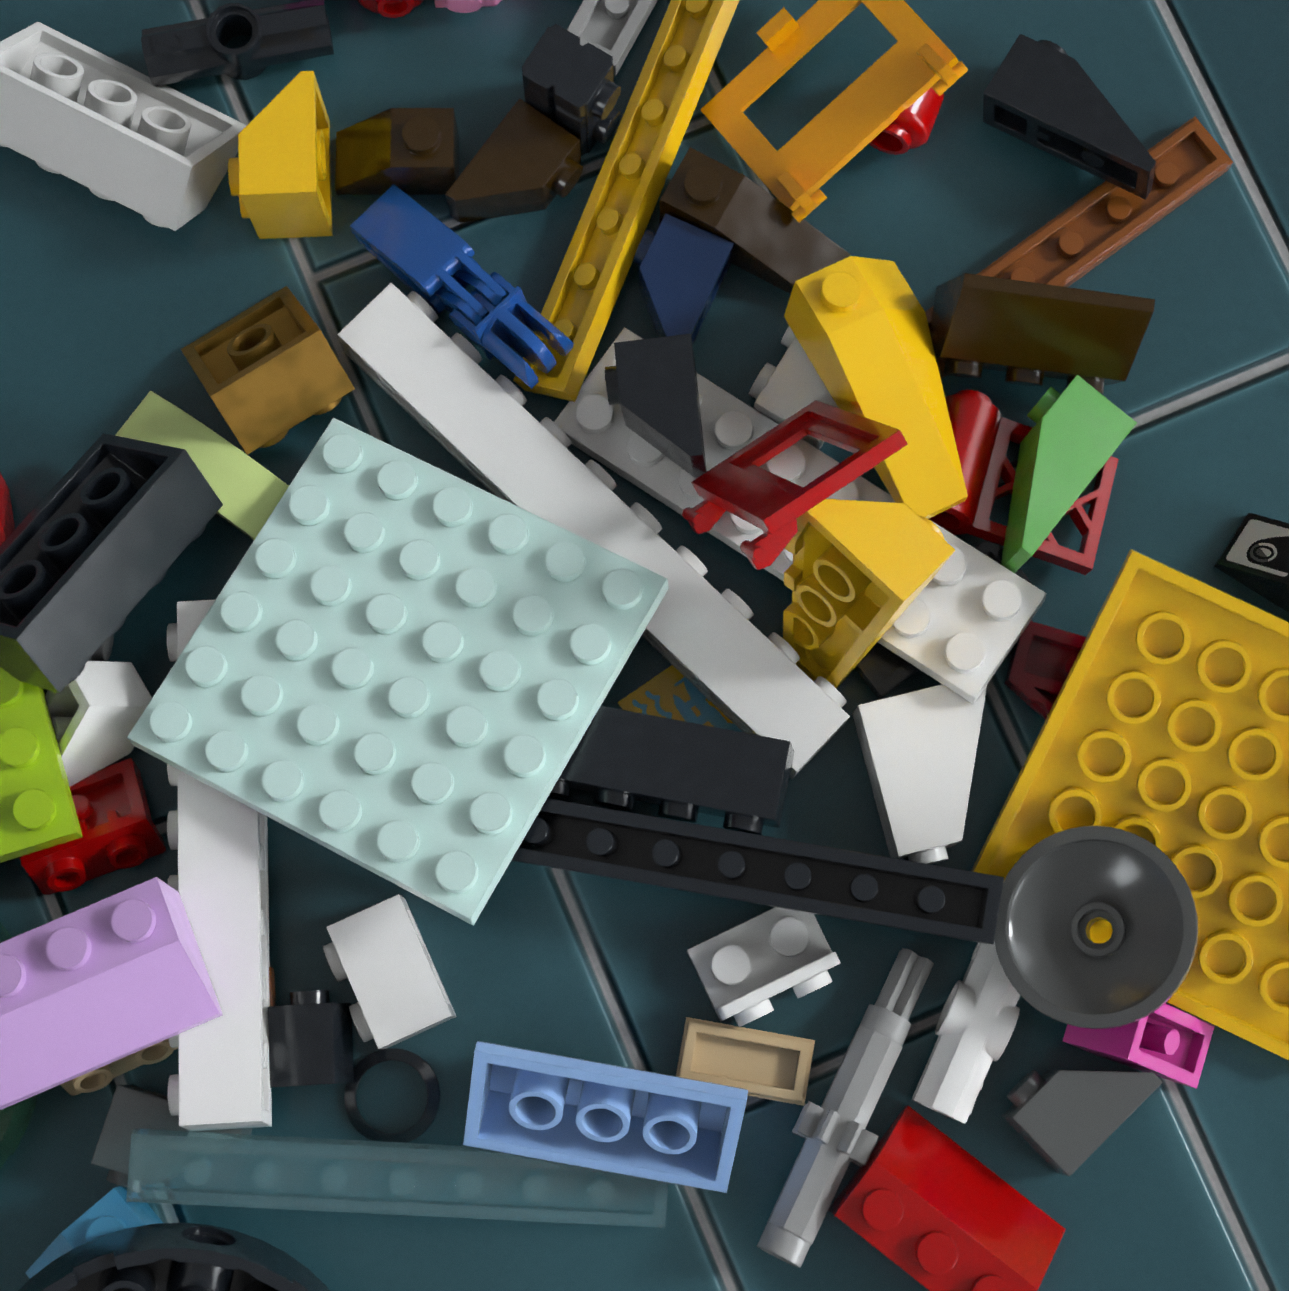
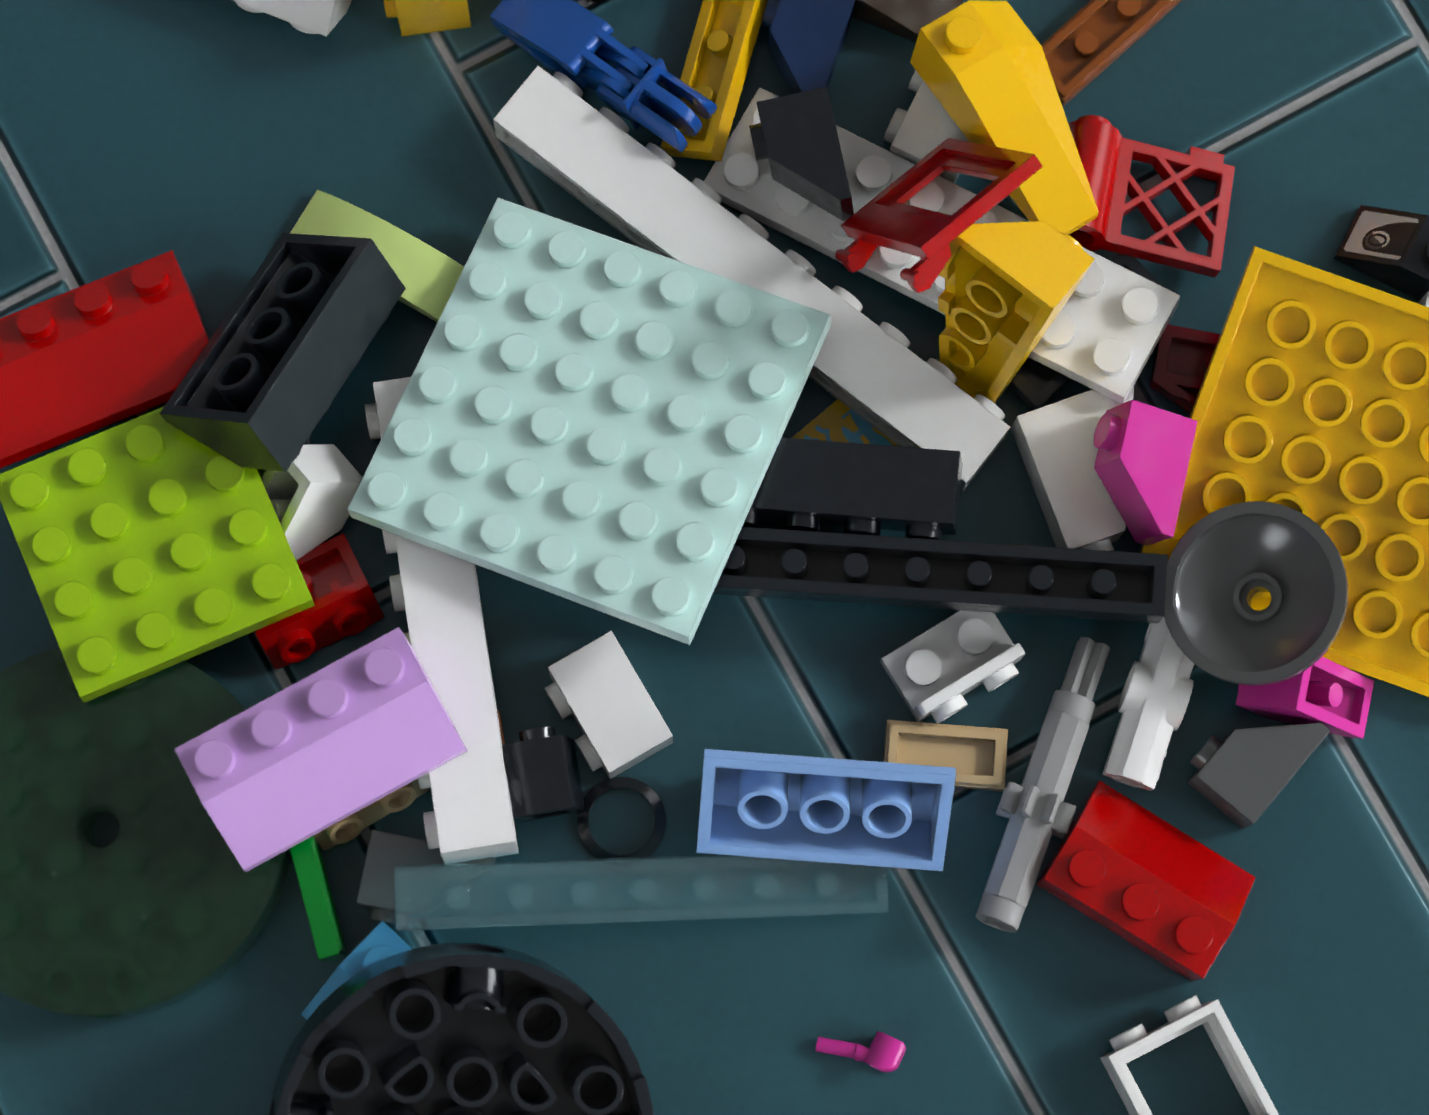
camera: 10 degrees left, 0 degrees up
(55, 1154) = (318, 900): none -> green tile
(268, 370) = (428, 158): pearl gold slope -> none
(989, 775) = (1144, 466): none -> dark pink slope
(1036, 331) = (1147, 55): dark brown slope -> none
(1058, 461) = (1179, 172): bright green slope -> none

